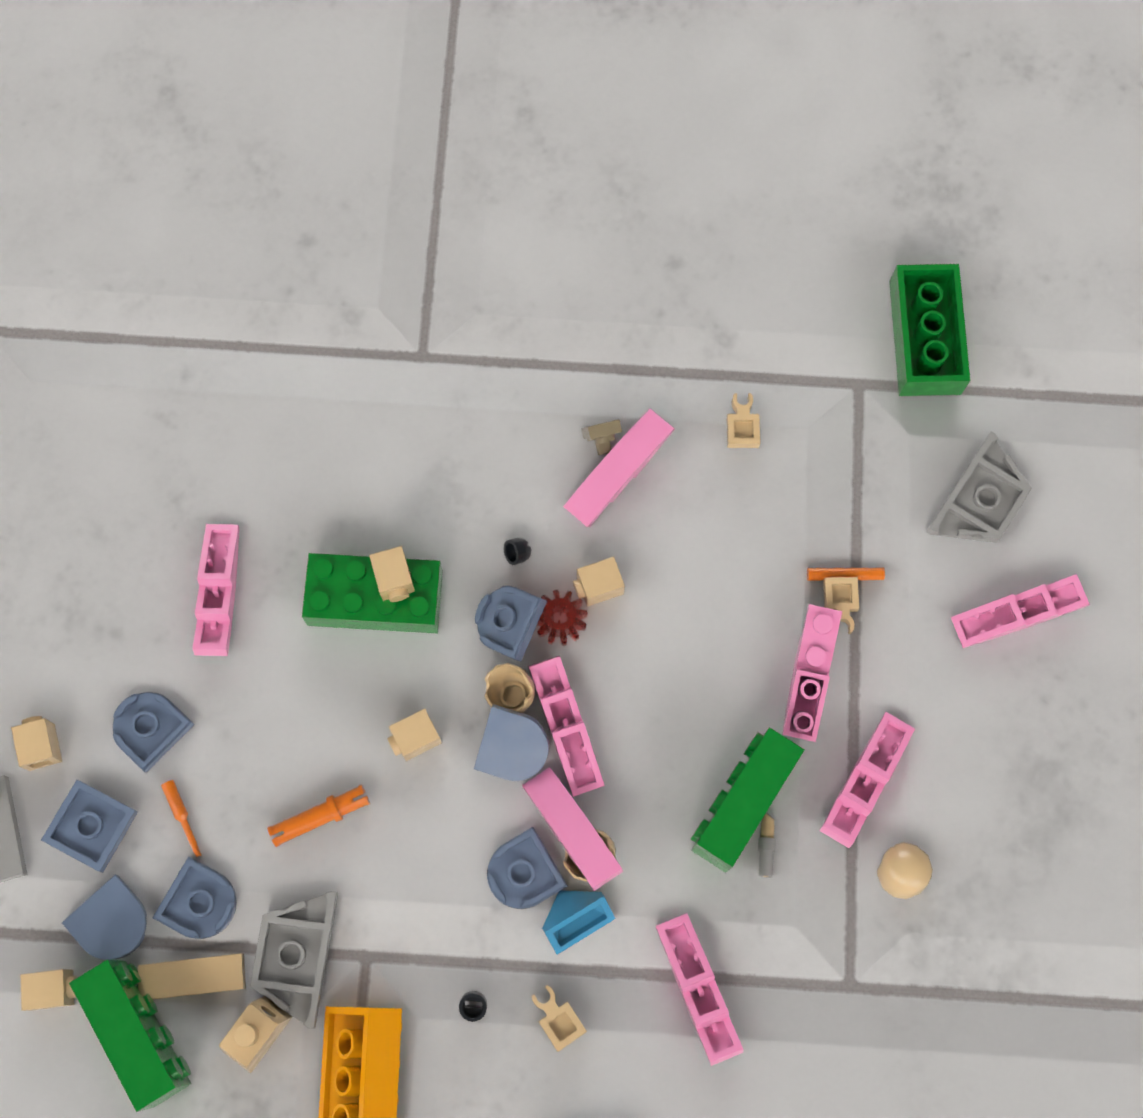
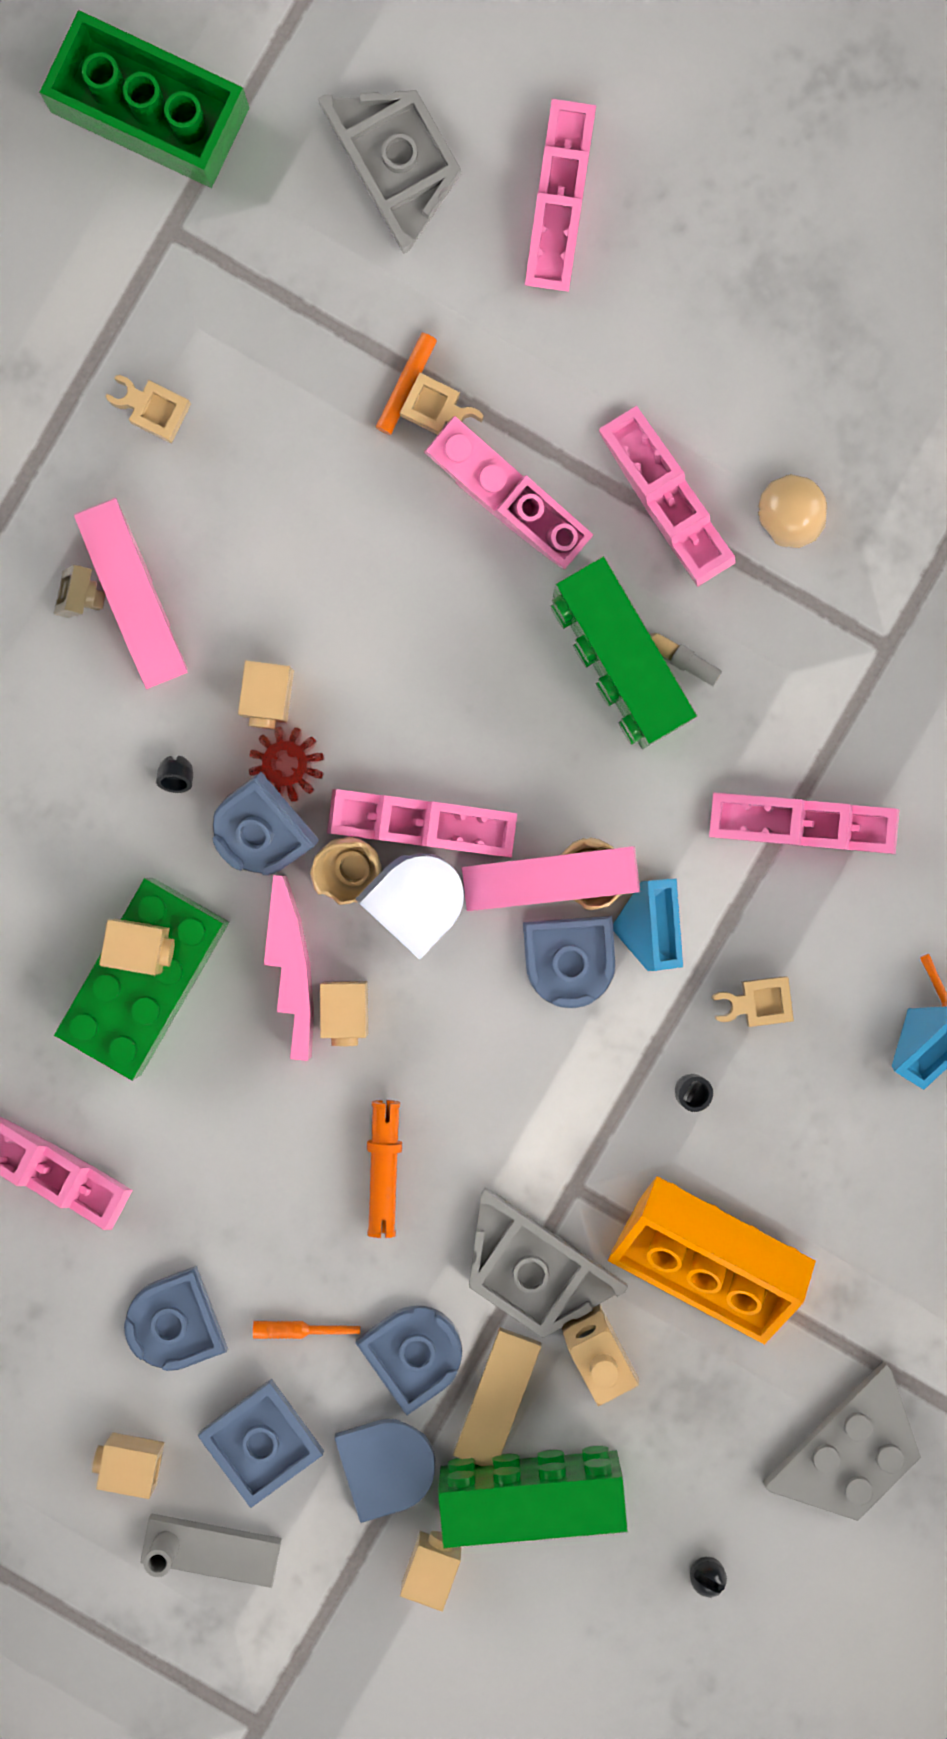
camera: 60 degrees left, 15 degrees up
(438, 678) = (288, 949): none -> bright pink slope

